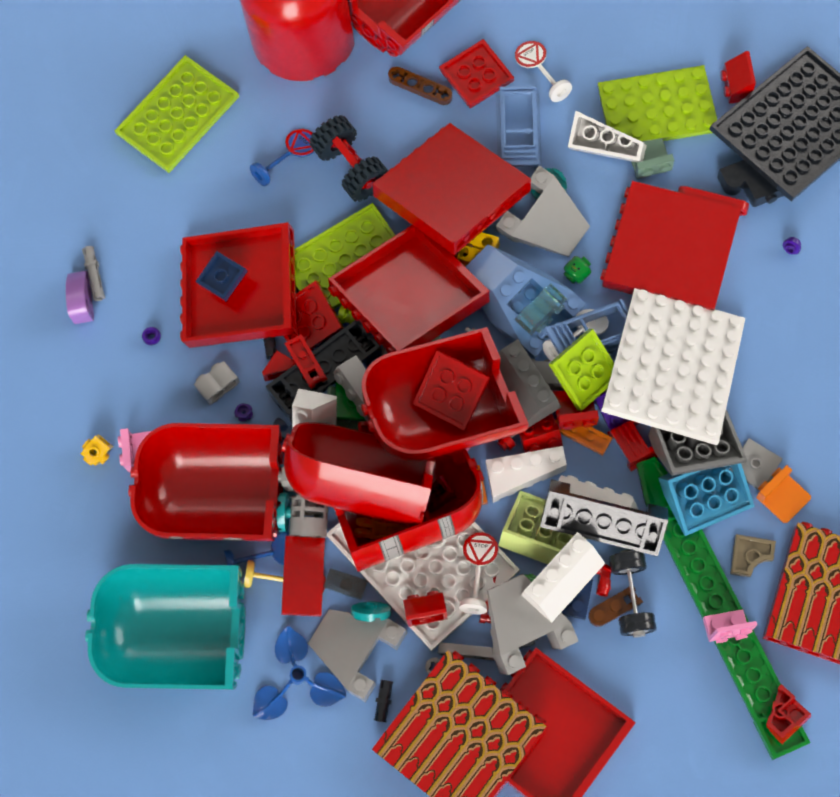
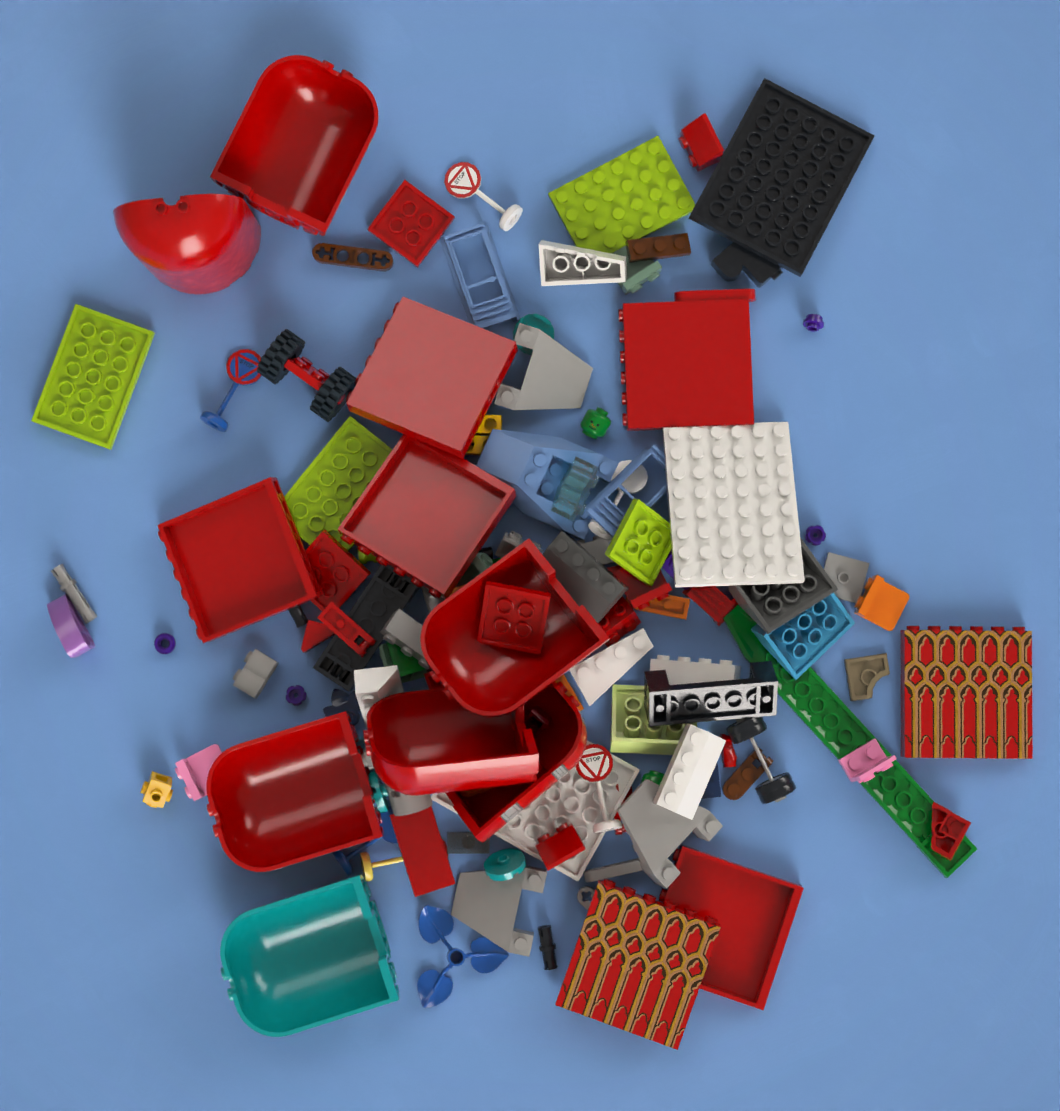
camera: 25 degrees left, 15 degrees up
(221, 276) = (219, 559): dark blue plate -> none
(680, 149) = (658, 247): none -> reddish brown plate
(741, 415) = (821, 535): none -> dark purple plate

